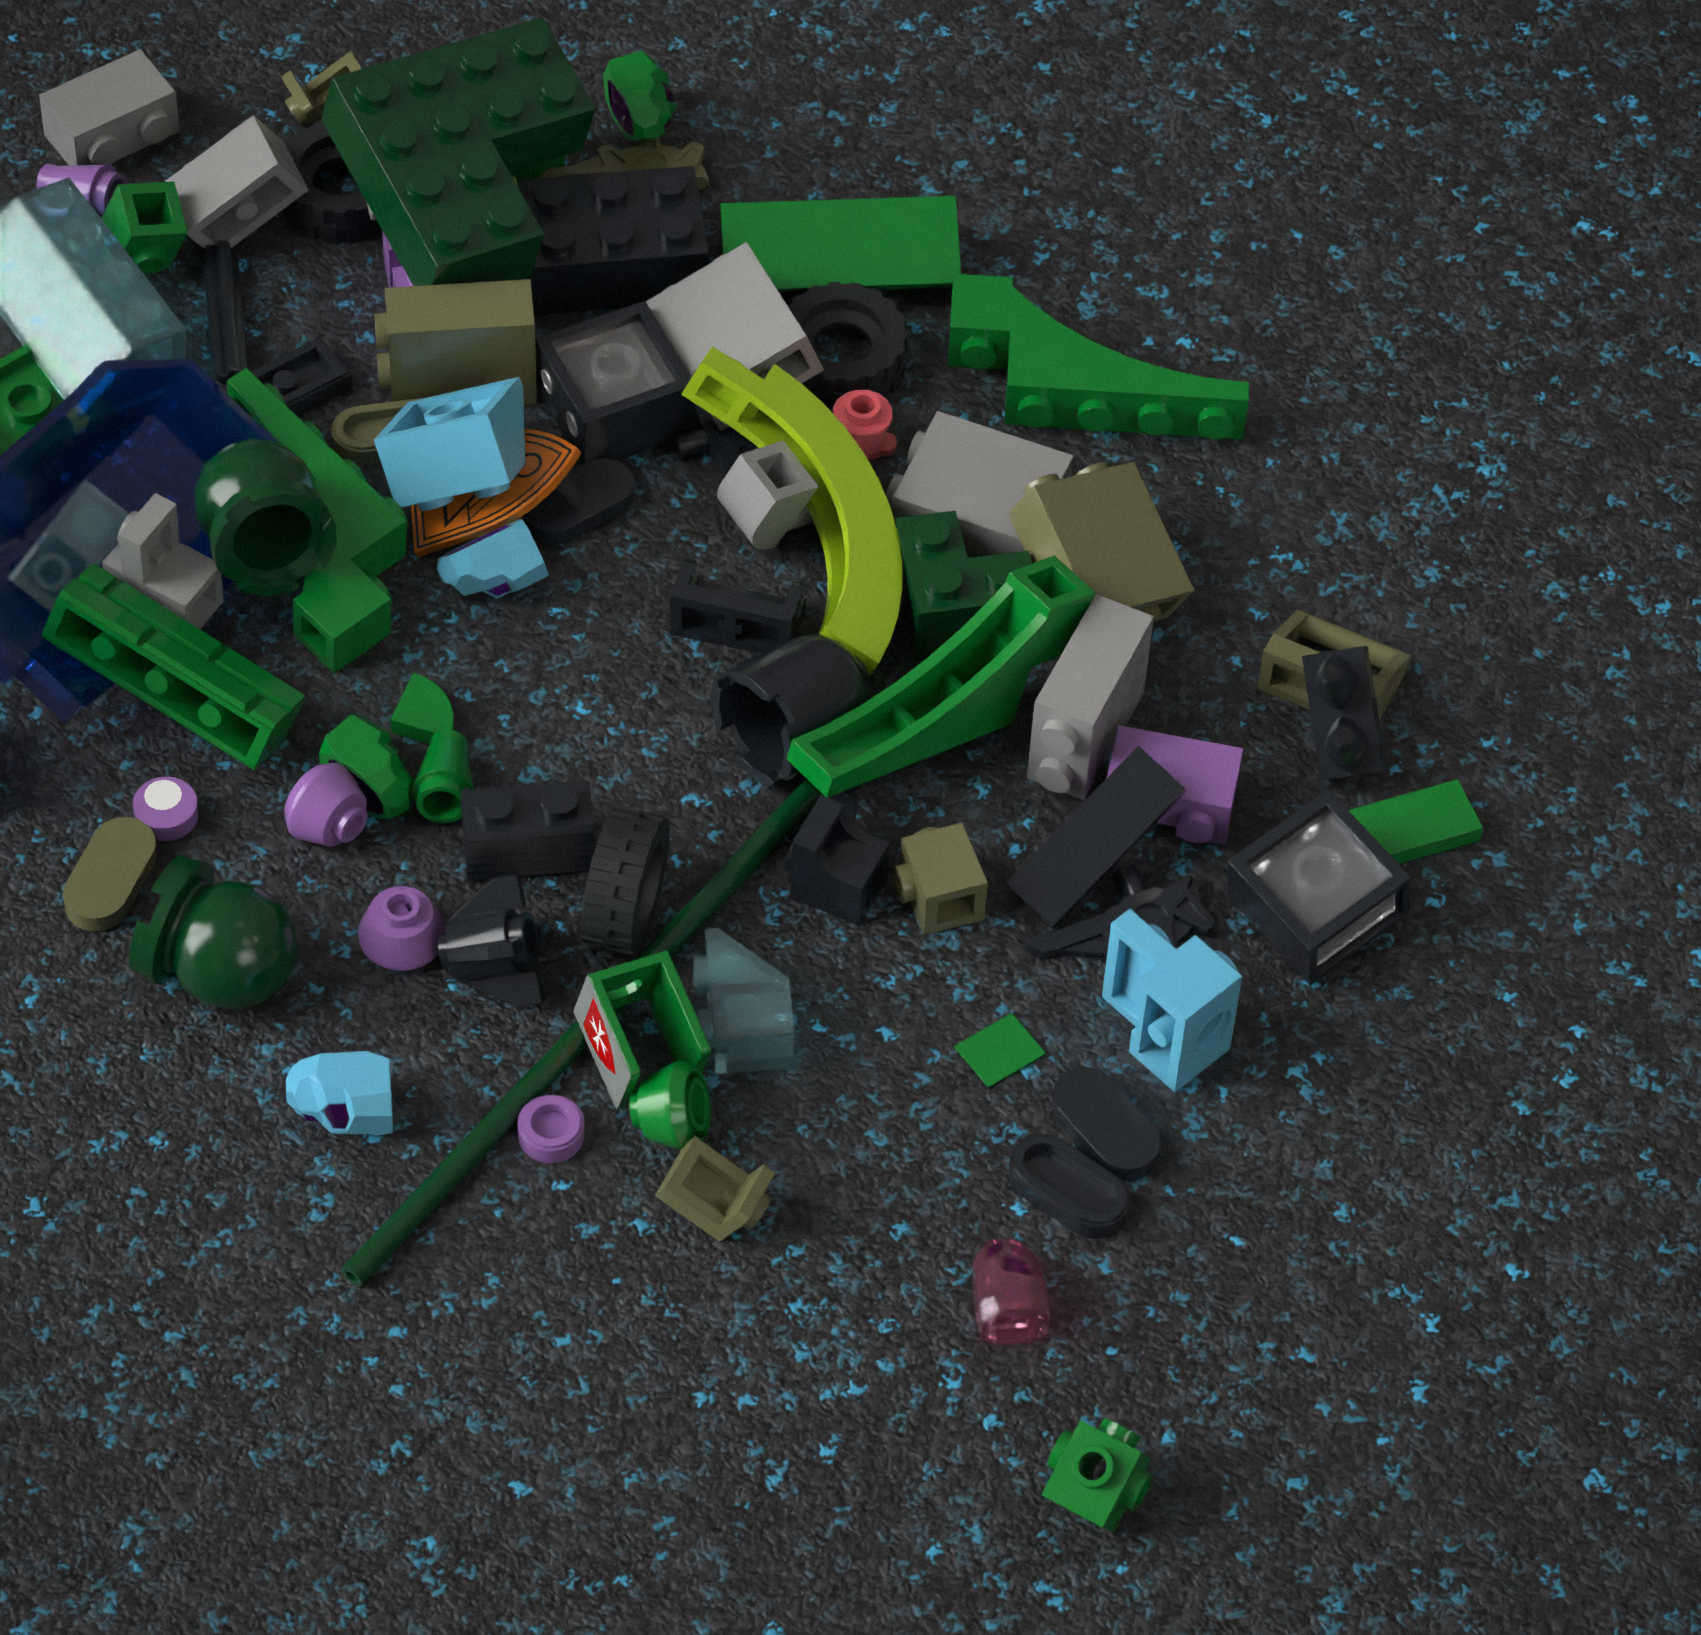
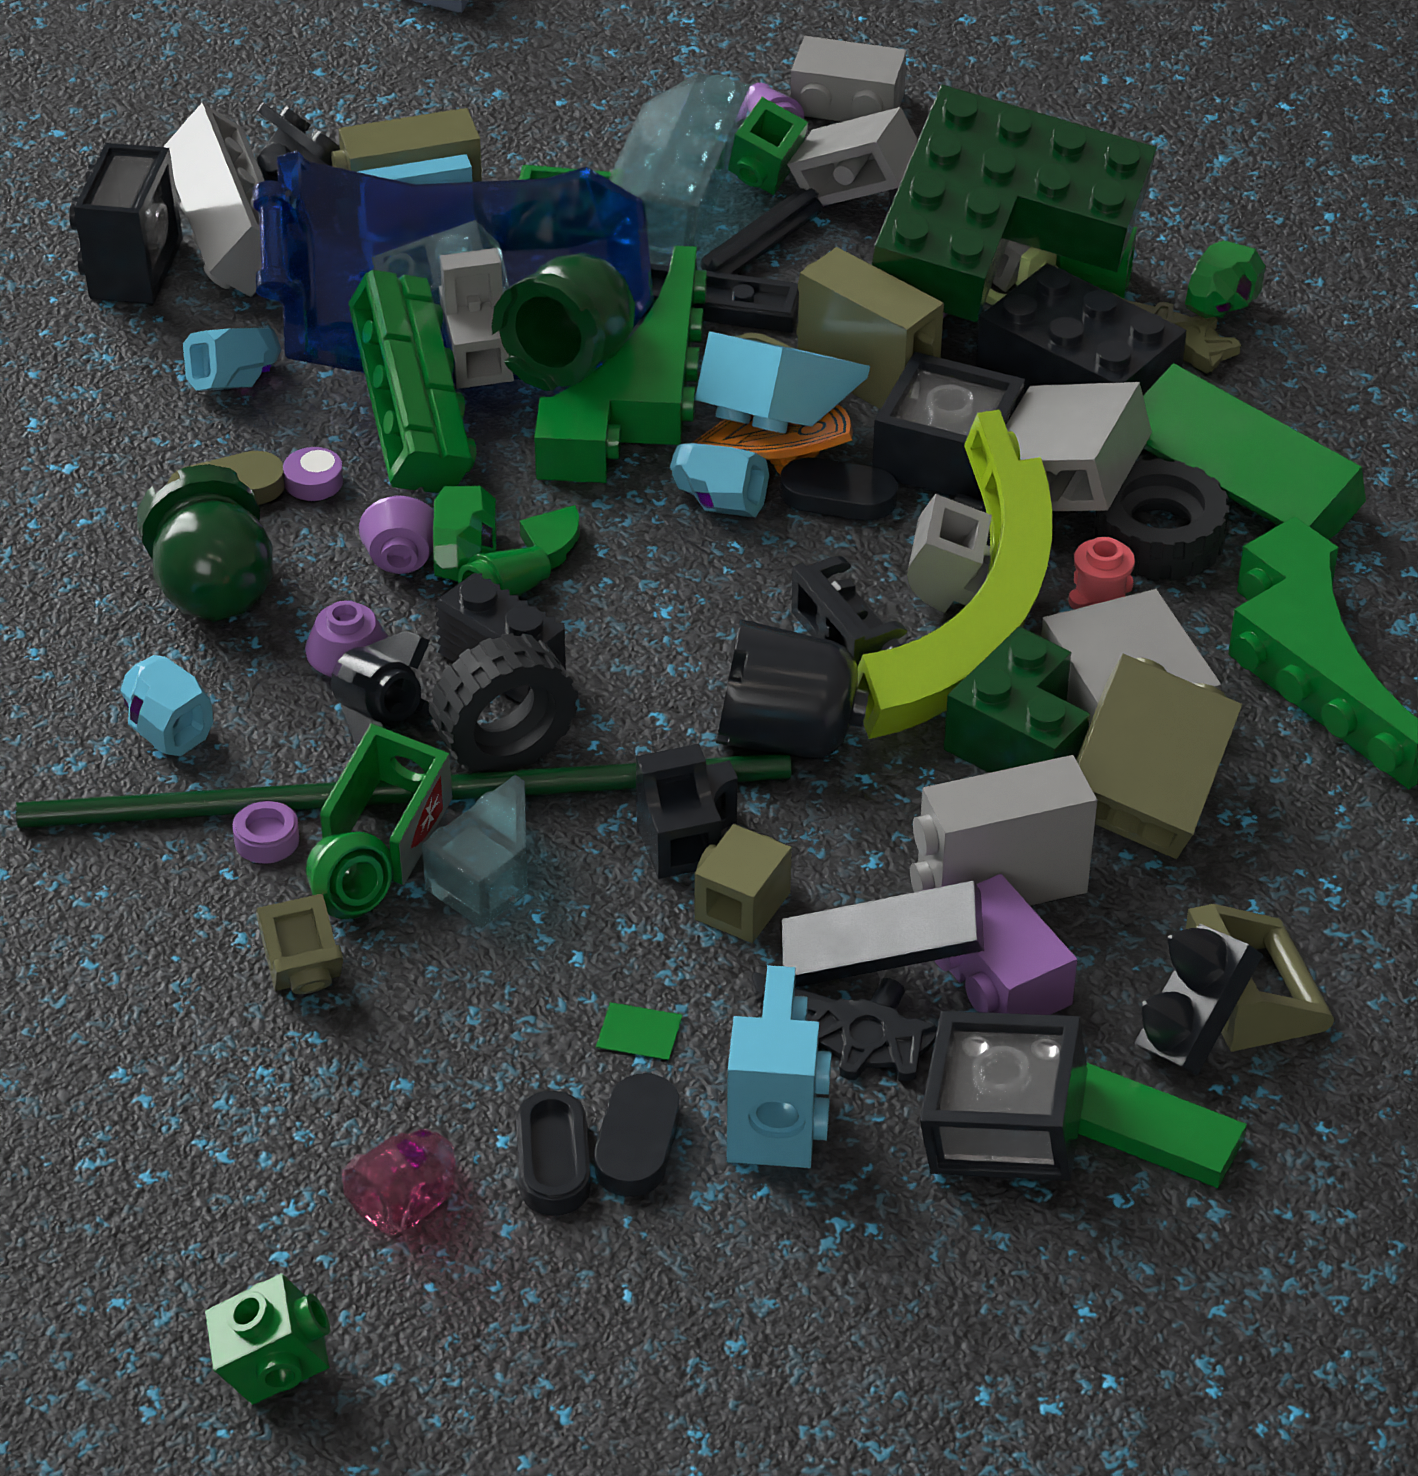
camera: 50 degrees right, 10 degrees down
(957, 691) = (890, 758): green arch -> none

